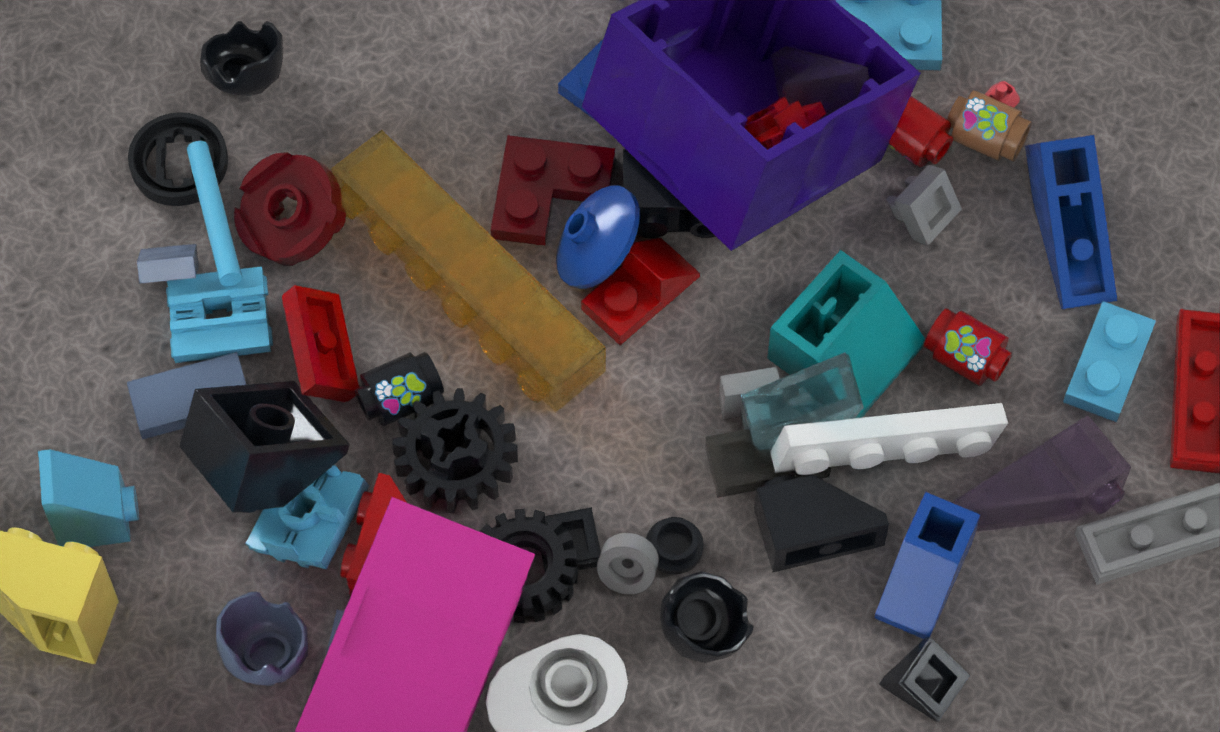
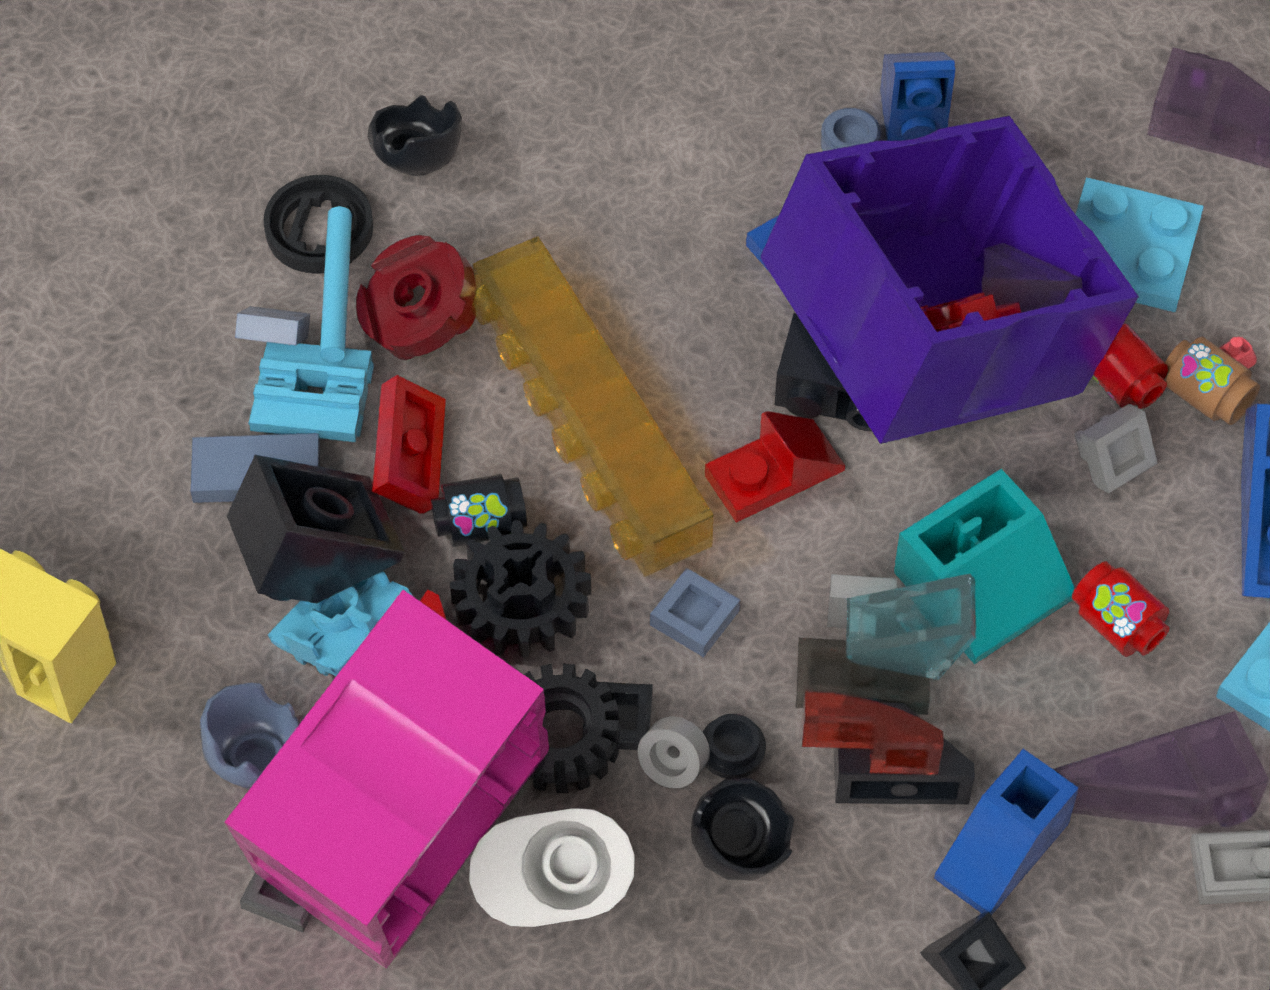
camera: 15 degrees right, 5 degrees down
(85, 499) = (108, 544): medium azure slope -> none
(536, 174) = (700, 322): dark red plate -> none
(598, 237) = (740, 399): blue dish -> none
(608, 434) = (694, 612): none -> sand blue tile
(814, 509) = (895, 738): none -> clear red slope
(876, 439) = (1002, 684): white plate -> none

